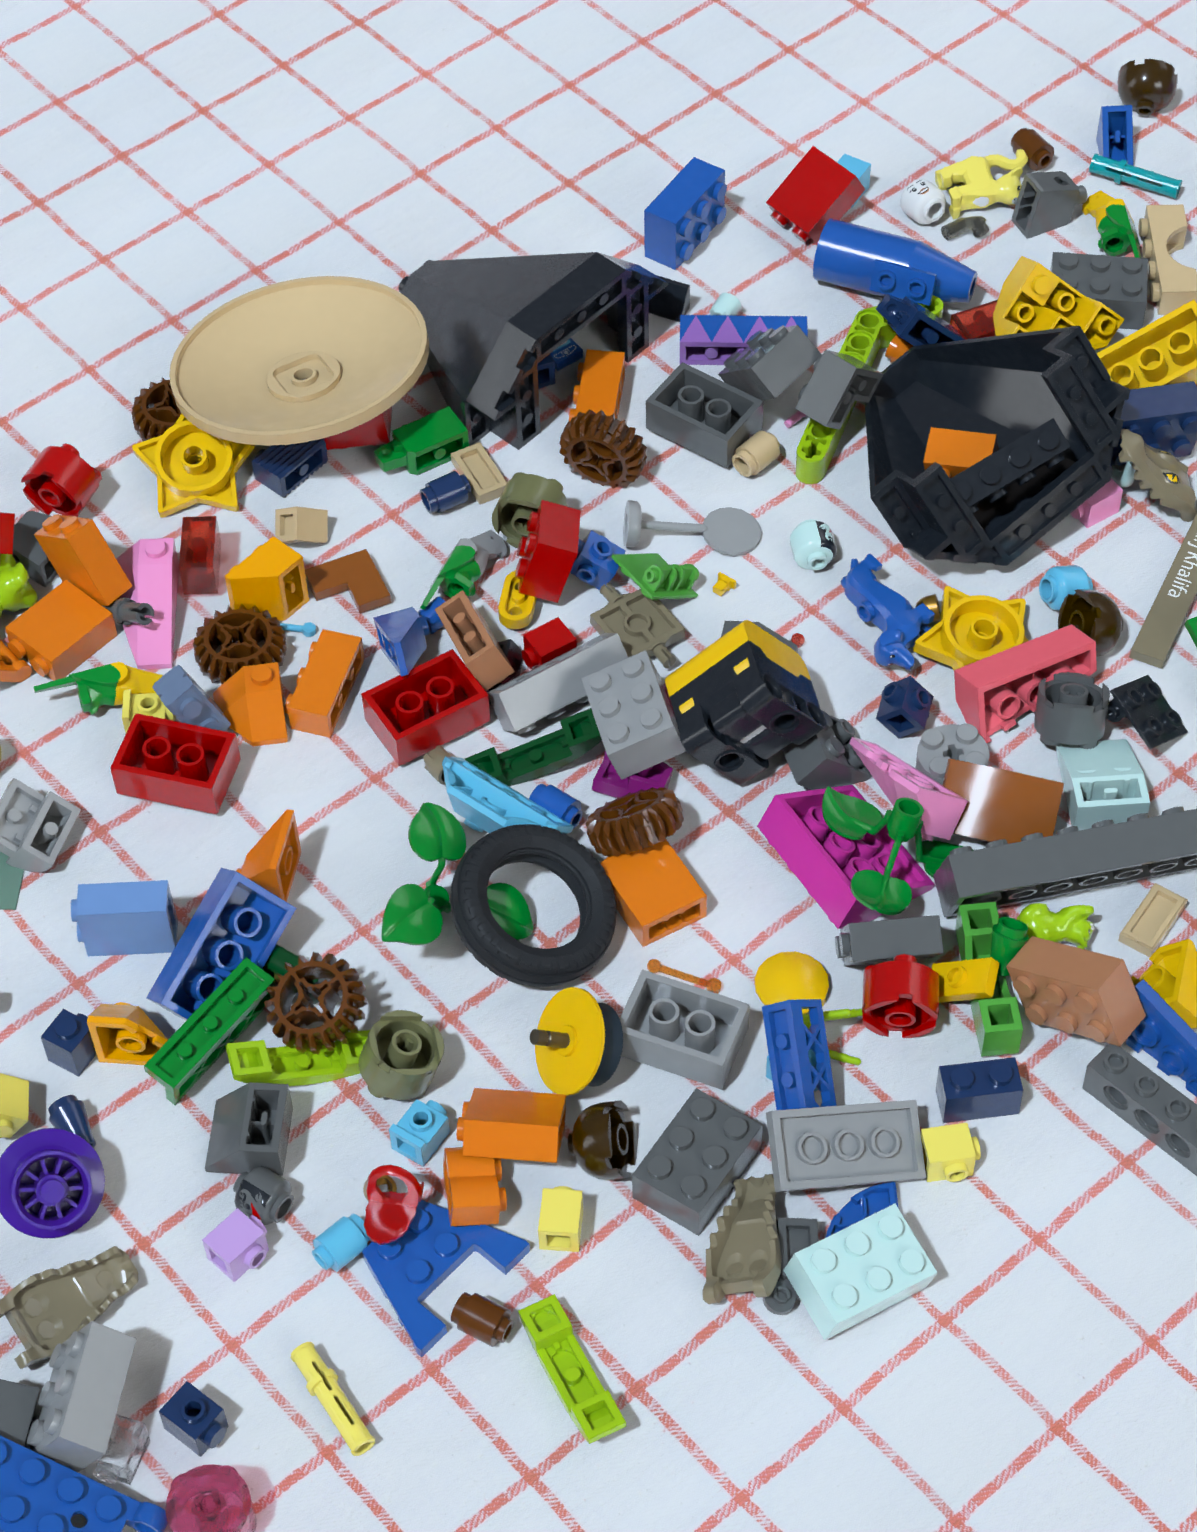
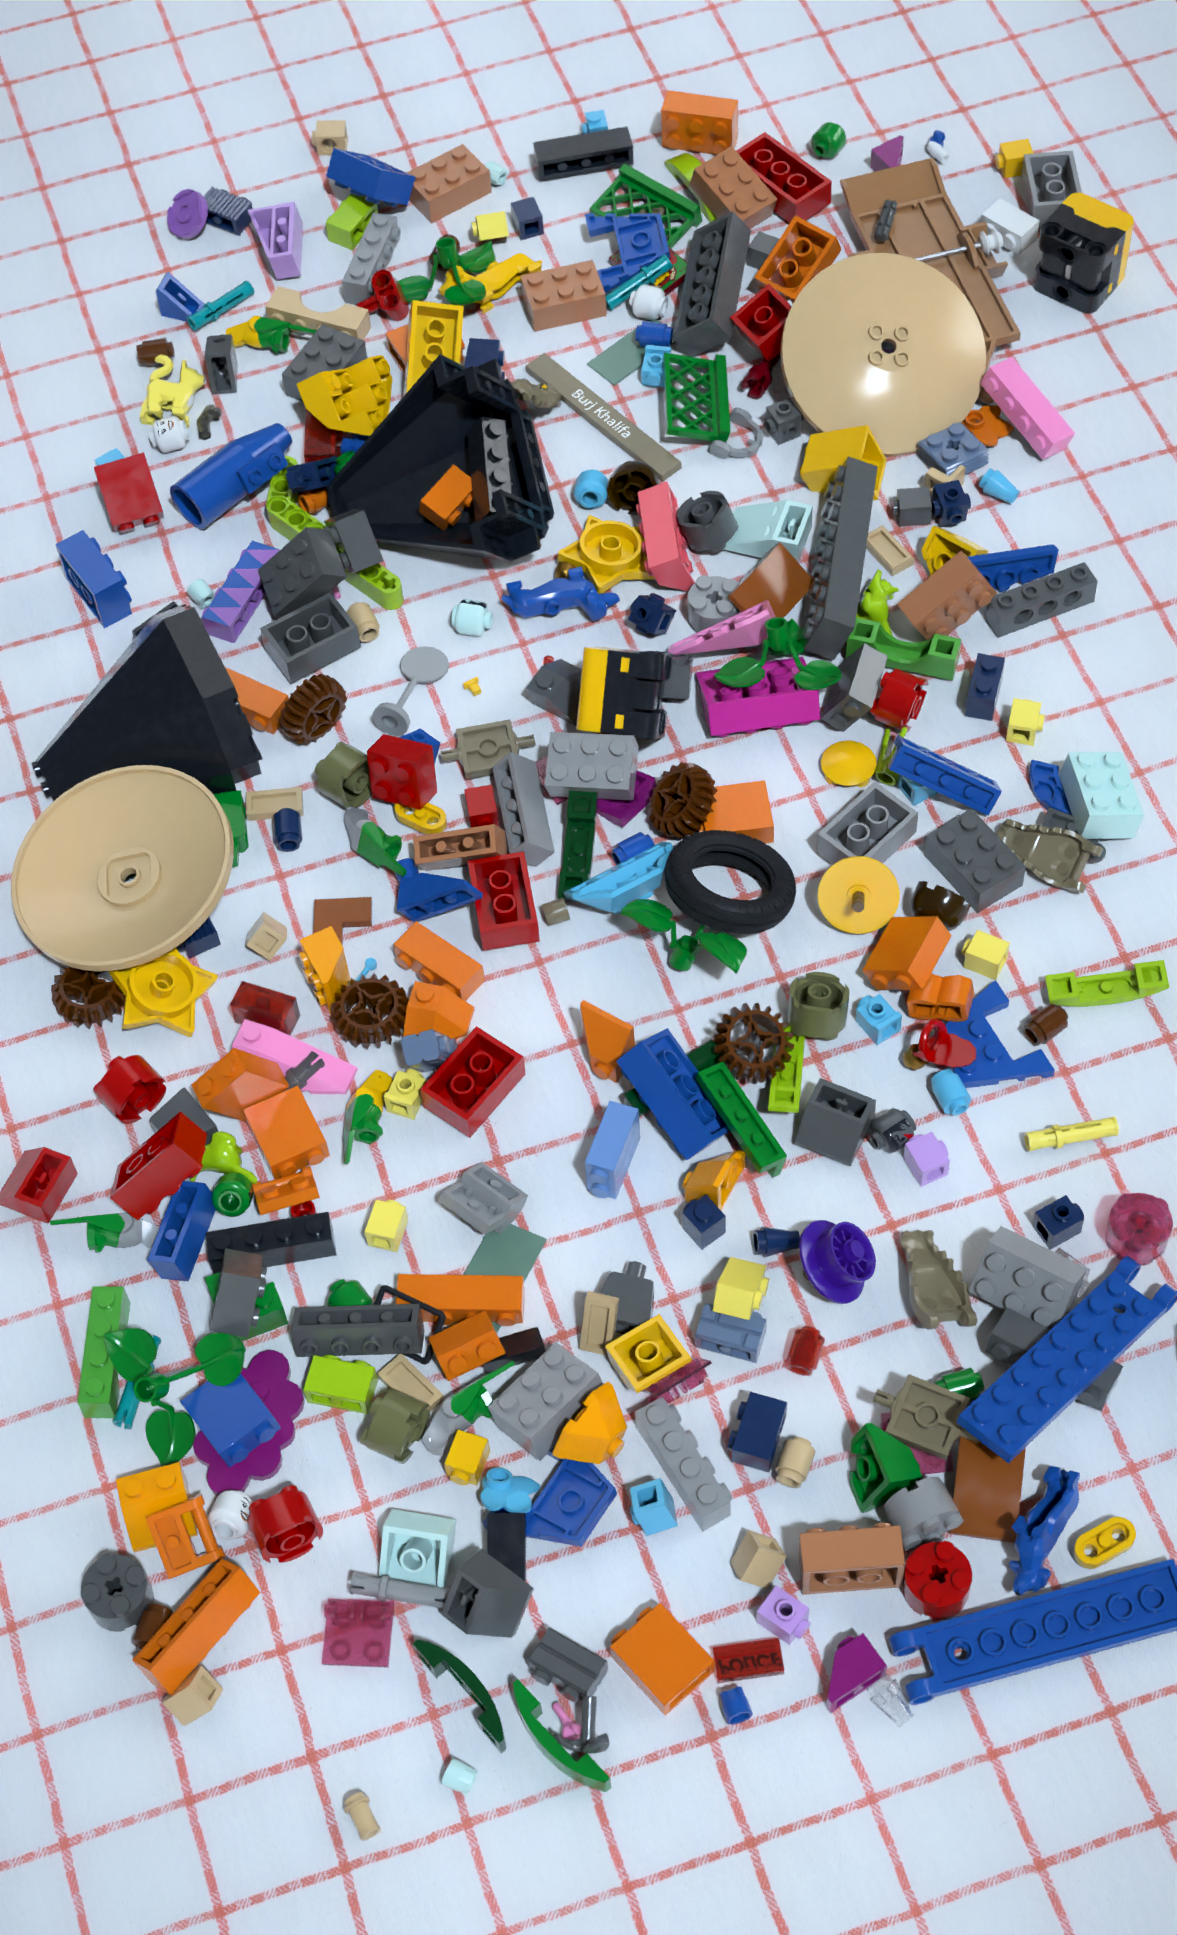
camera: 65 degrees left, 5 degrees up
(658, 577) = (461, 718): bright green hinge -> none
(712, 985) = (827, 810): clear orange hinge -> none
(845, 1145) = (1005, 769): light grey plate -> none
(966, 979) = (904, 654): yellow plate -> none
(1007, 940) = (892, 621): green cone -> none
(1147, 85) = (142, 262): dark brown cylinder -> none
(1147, 710) = (732, 482): black hinge -> none

